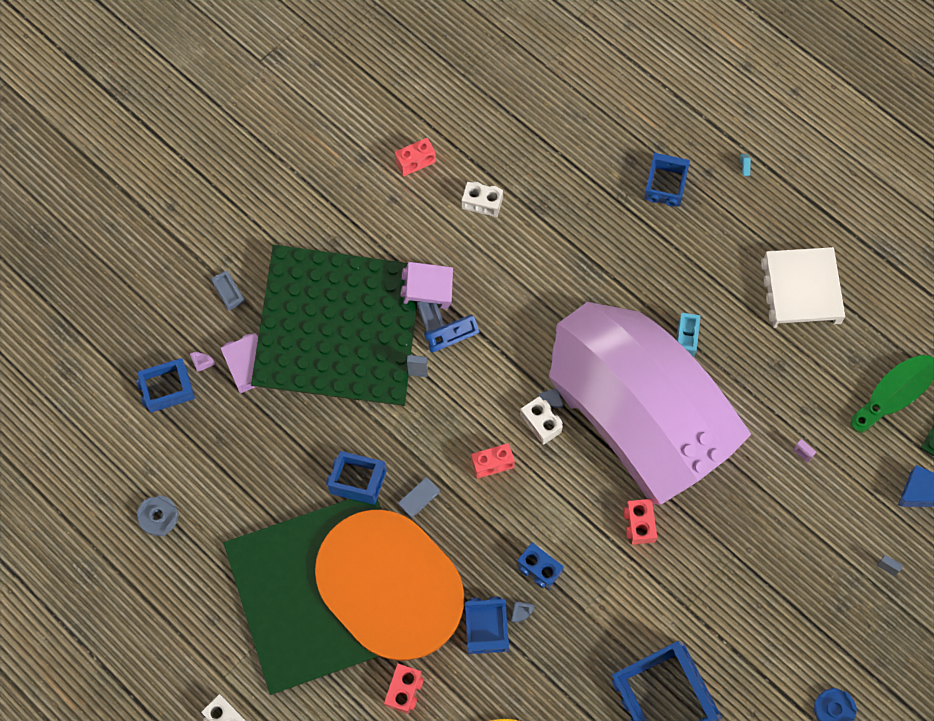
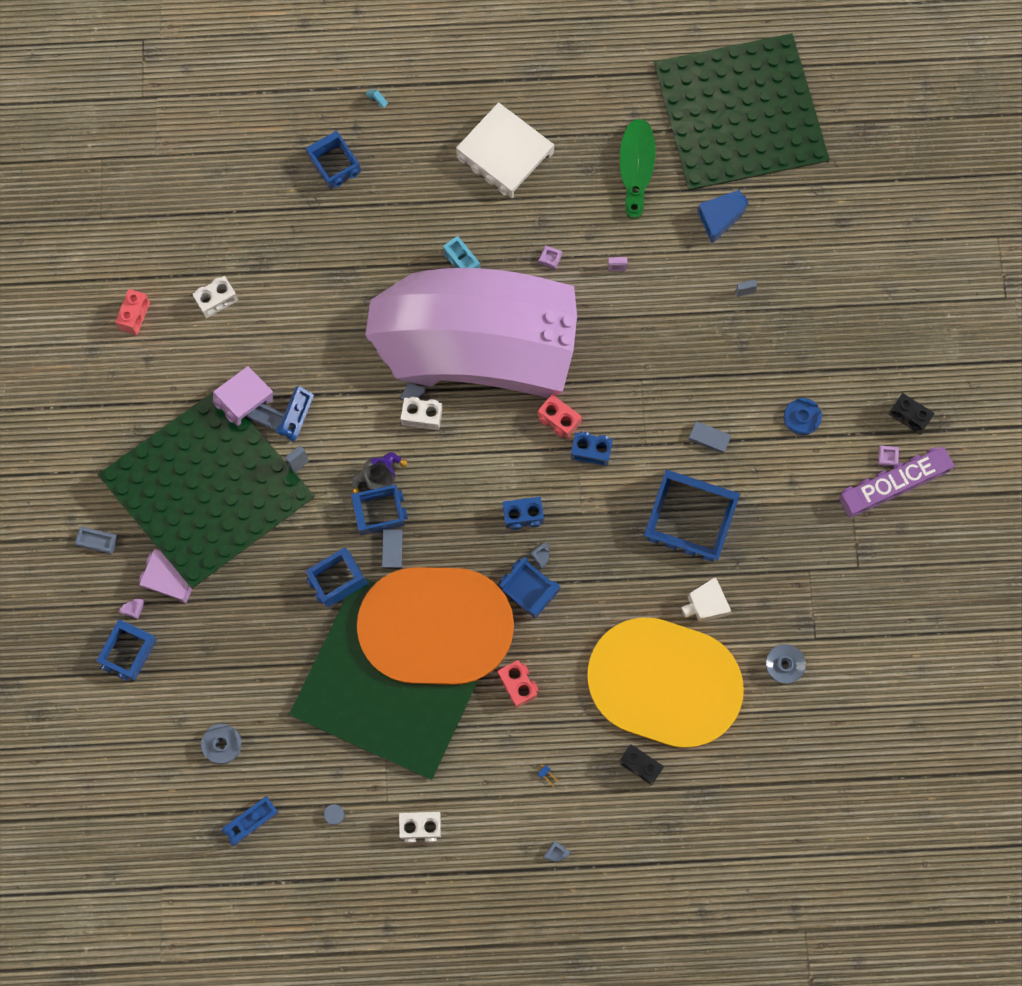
camera: 45 degrees left, 5 degrees up
(119, 590) = (250, 820): none -> blue plate
(178, 647) = (334, 814): none -> sand blue tile
(422, 447) = (374, 494): none -> blue window
(465, 432) = (377, 472): none -> dark grey piece
(492, 460) = (417, 474): coral brick -> none
(636, 572) = (590, 454): none -> blue brick
(743, 651) = (709, 437): none -> sand blue tile
(757, 398) = (550, 257): none -> lavender tile

